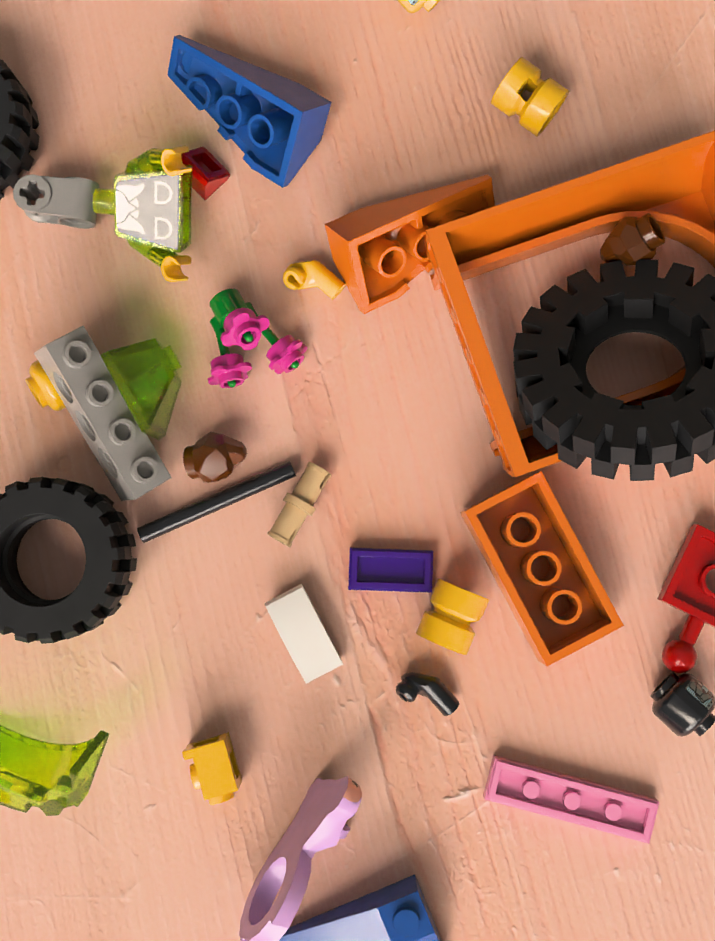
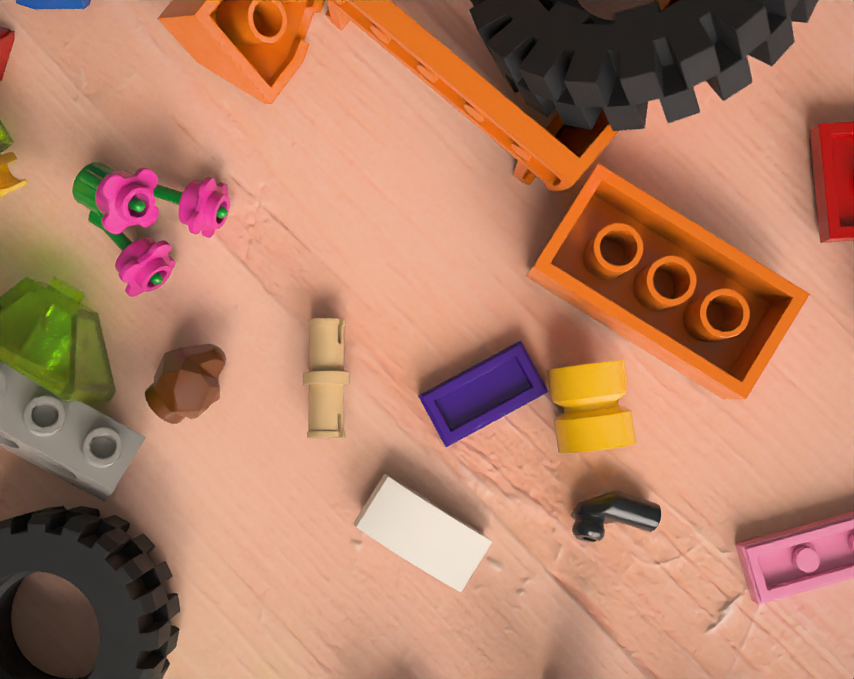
camera: 30 degrees left, 0 degrees up
(216, 502) = (223, 436): black bar -> none
(310, 275) = (181, 94): yellow arm -> none

